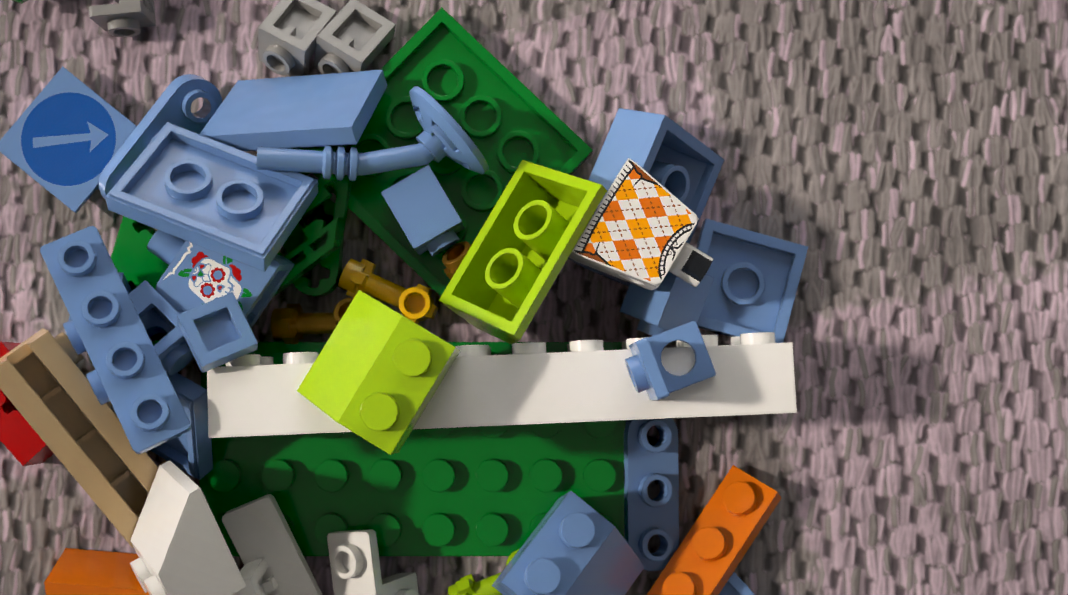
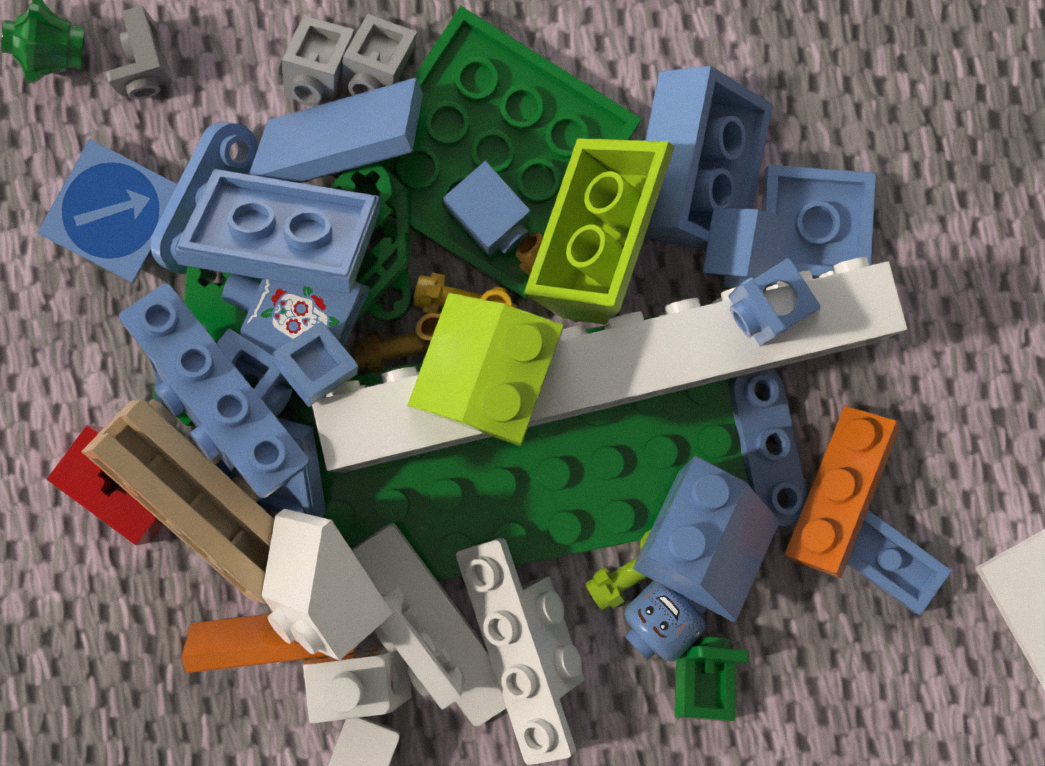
camera: 15 degrees left, 0 degrees up
(439, 139) = (493, 127): medium blue dish -> none
(641, 233) = (715, 185): torso -> none

